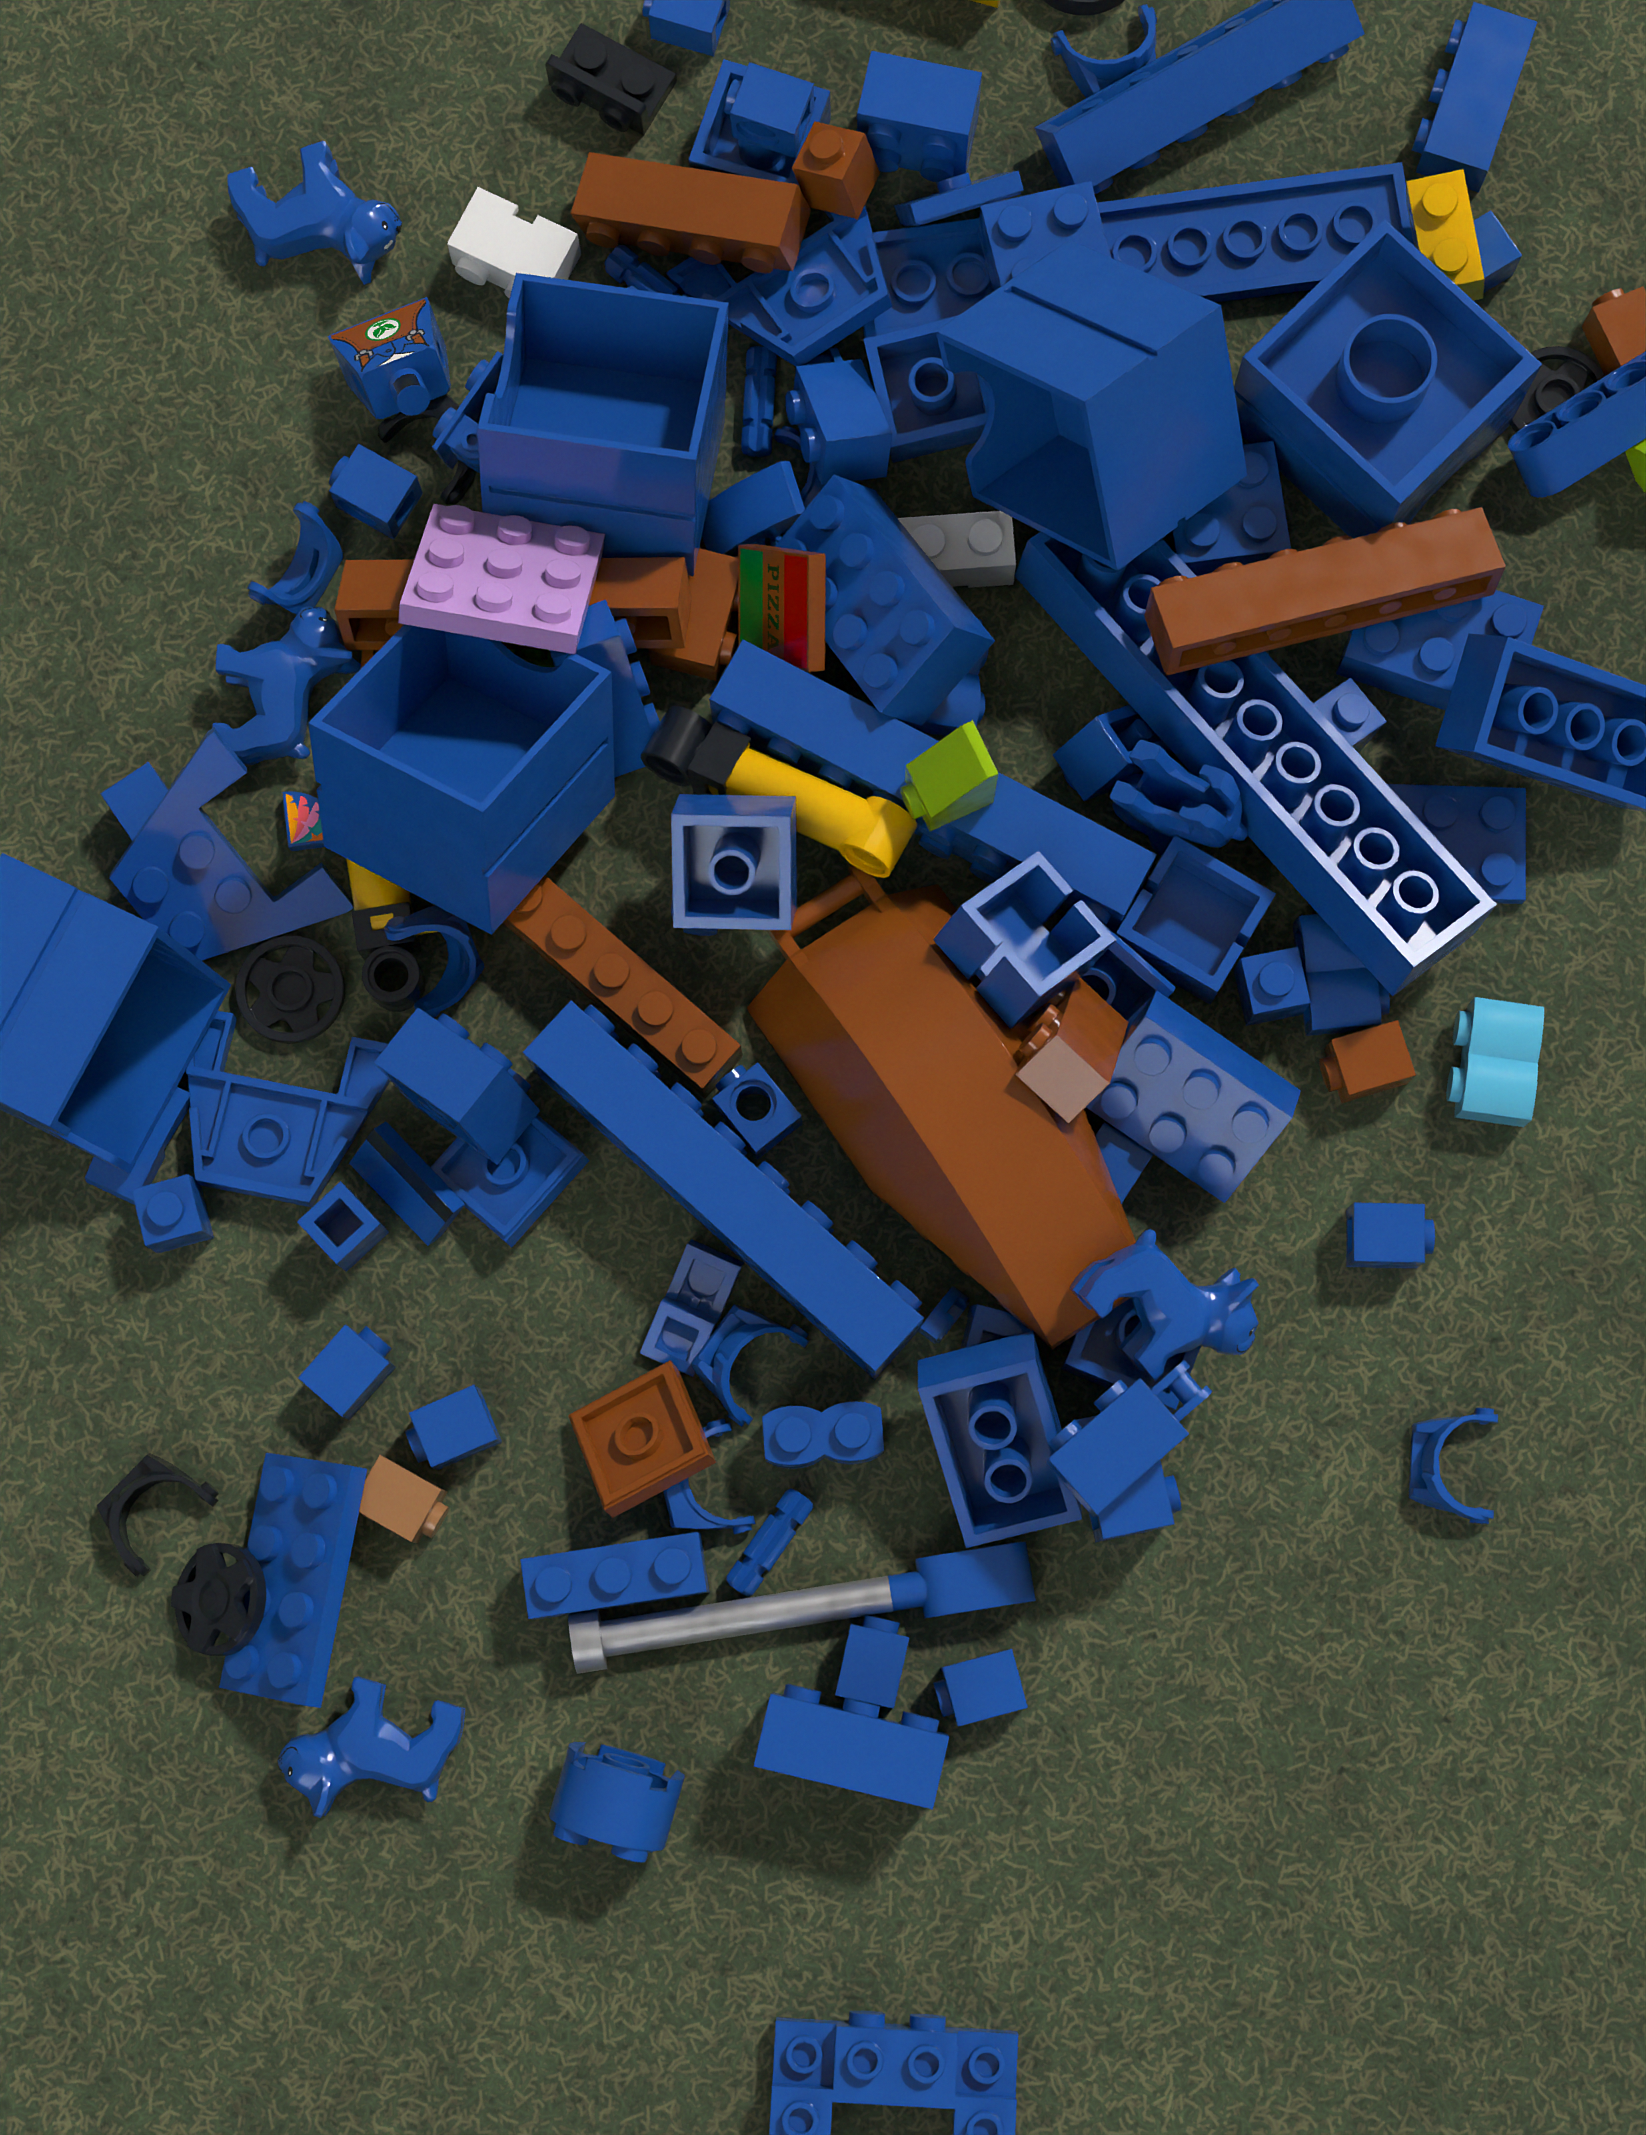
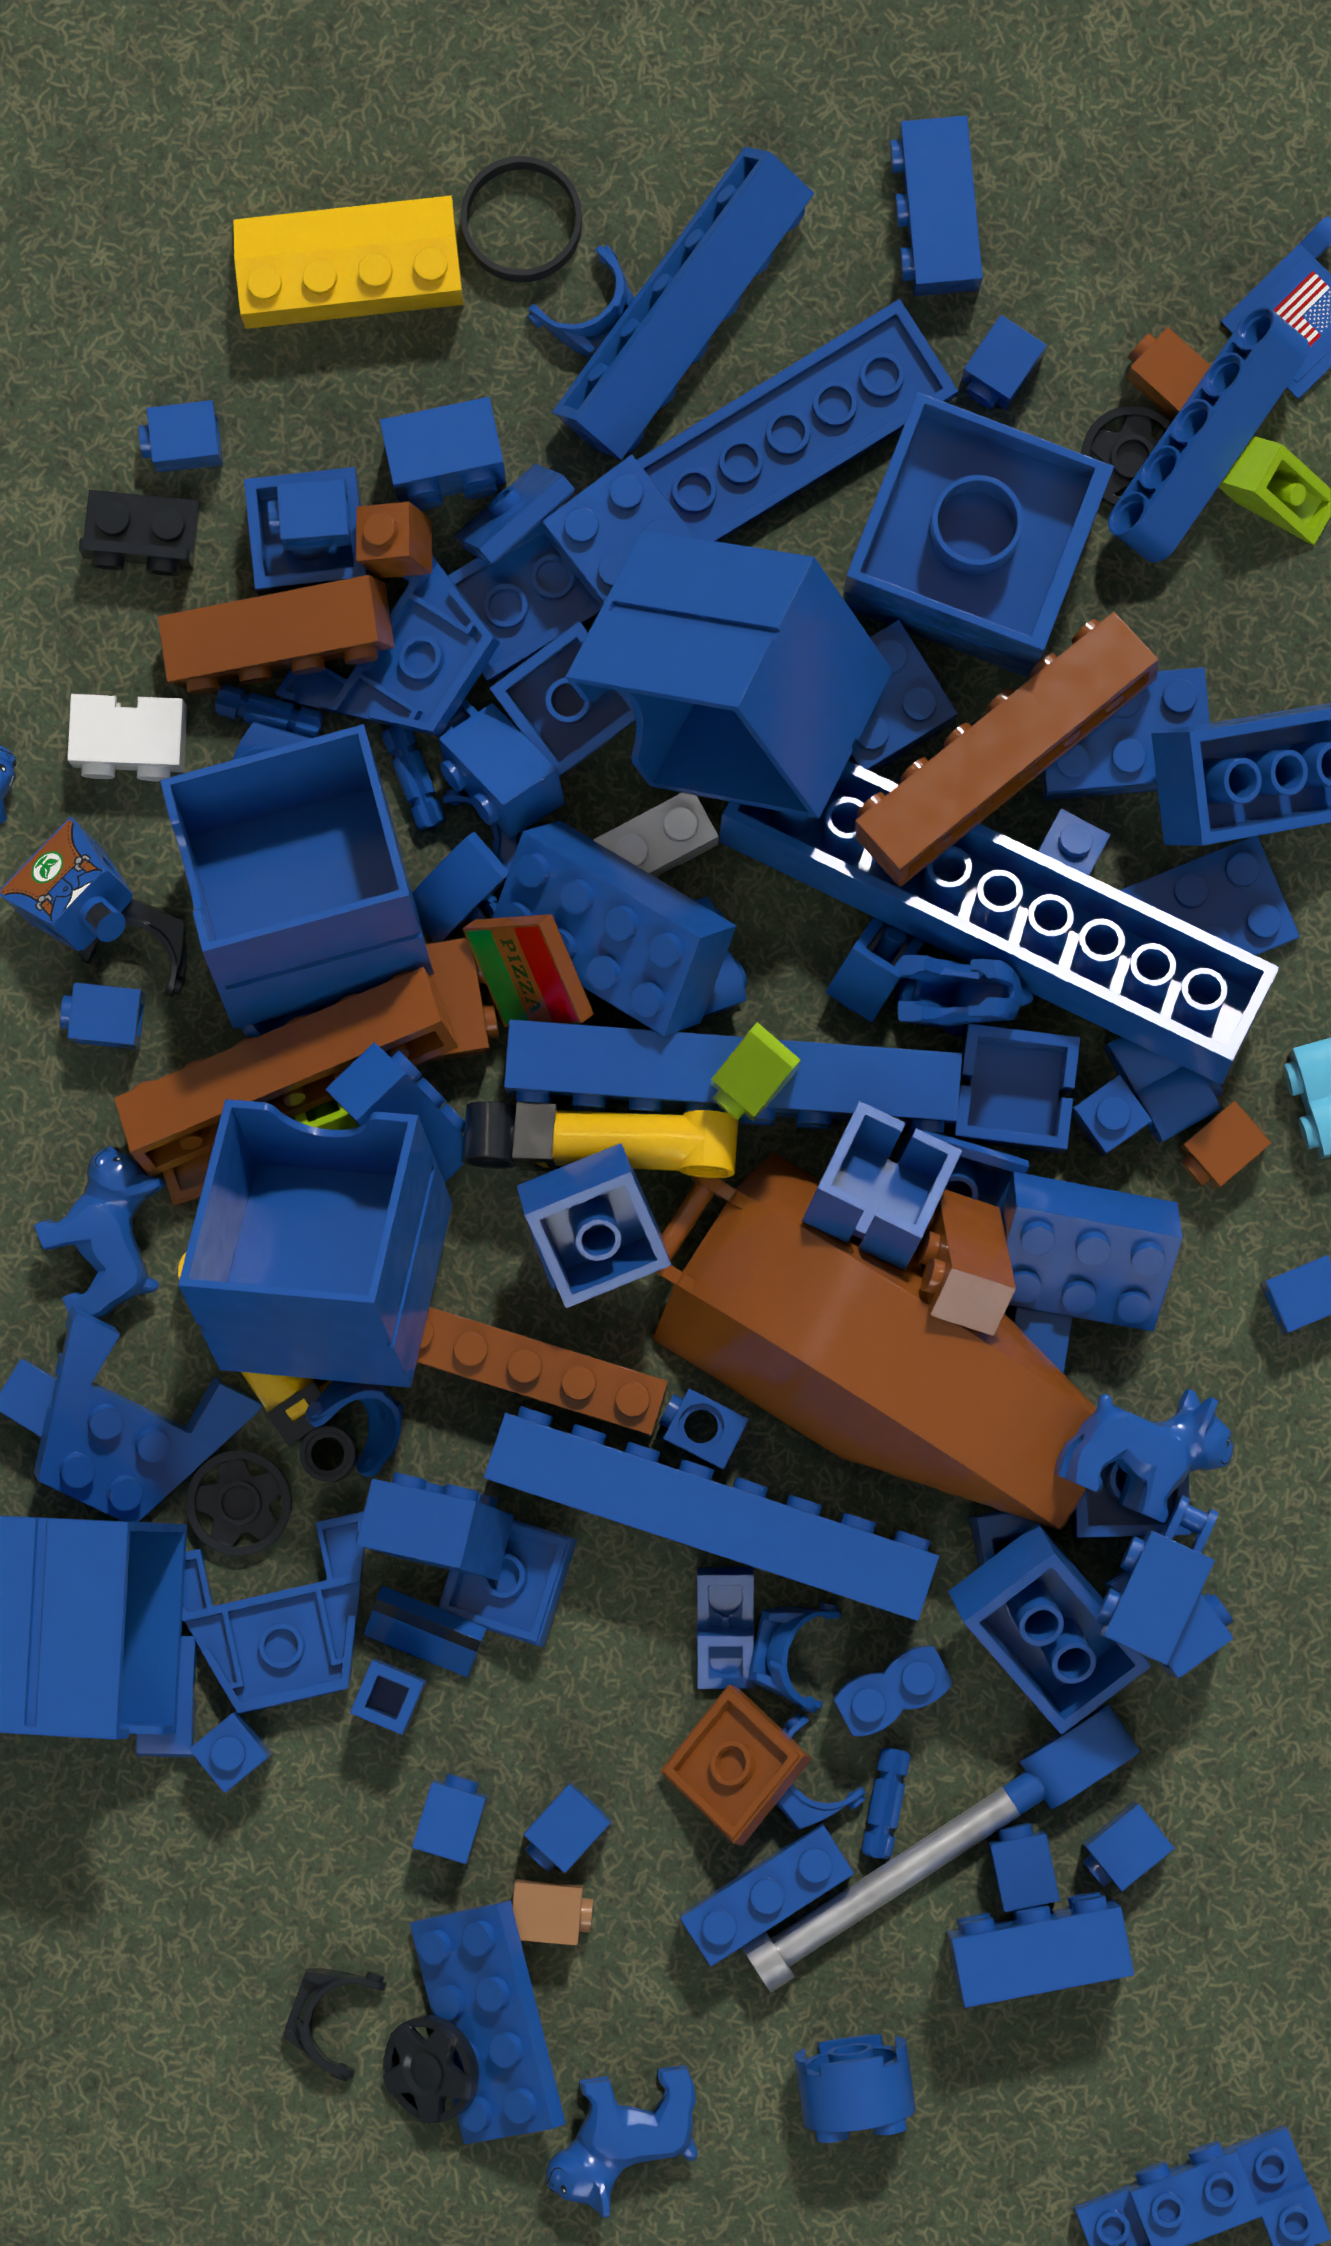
camera: 25 degrees left, 5 degrees up
(297, 586) = (68, 1122): blue helmet -> none
(302, 821) = (182, 1344): tile -> none
(457, 428) = (168, 939): blue hinge -> none
(502, 578) = (276, 1066): lavender plate -> none
(938, 1322) = (950, 1535): blue tile -> none
(1445, 228) = (973, 366): yellow brick -> none

